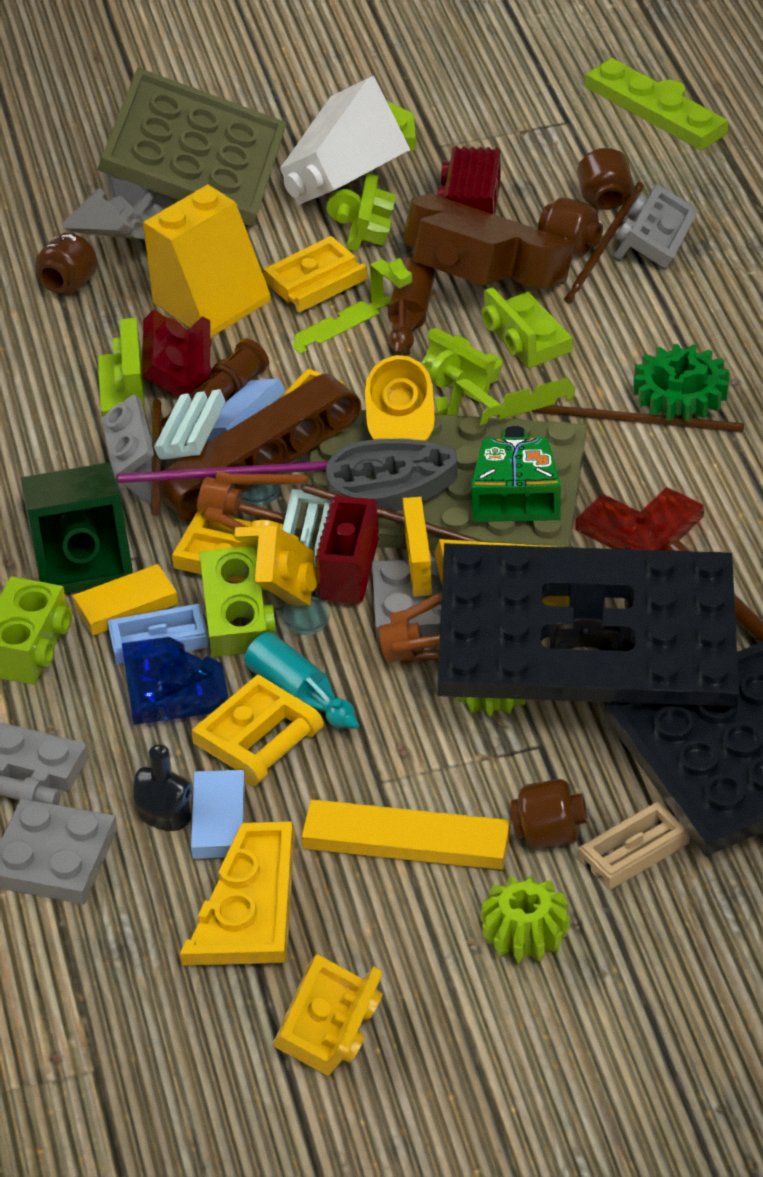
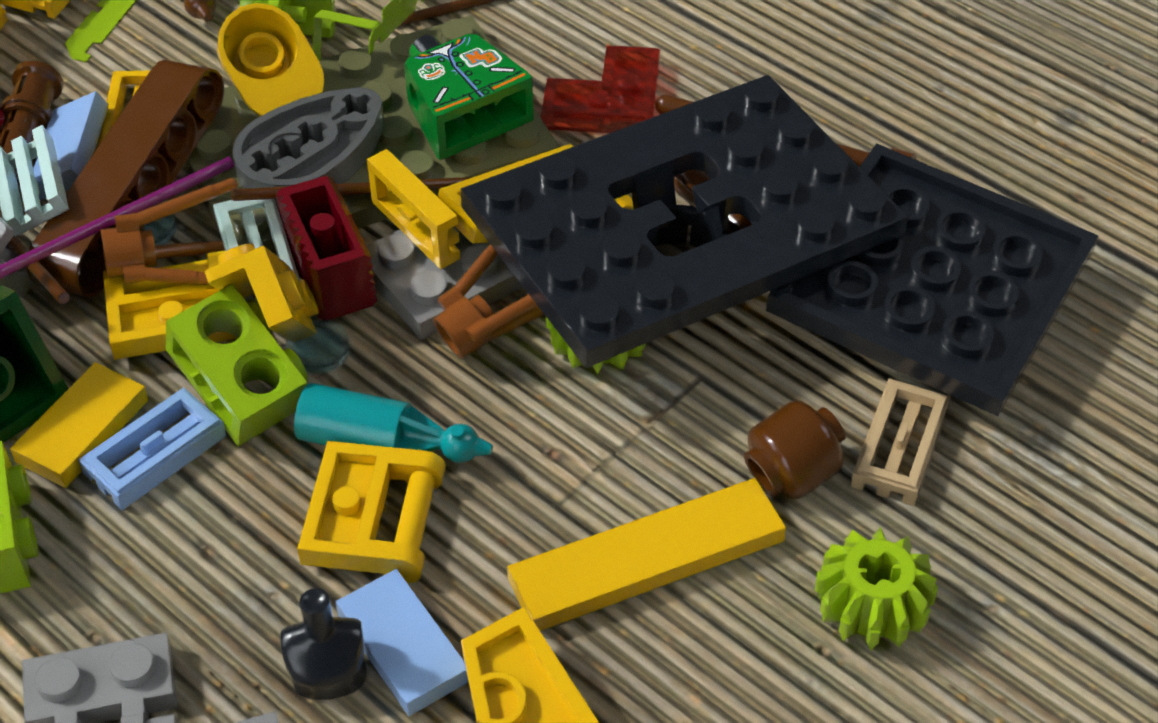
camera: 35 degrees left, 5 degrees up
(170, 681) = (218, 502): clear blue plate -> none

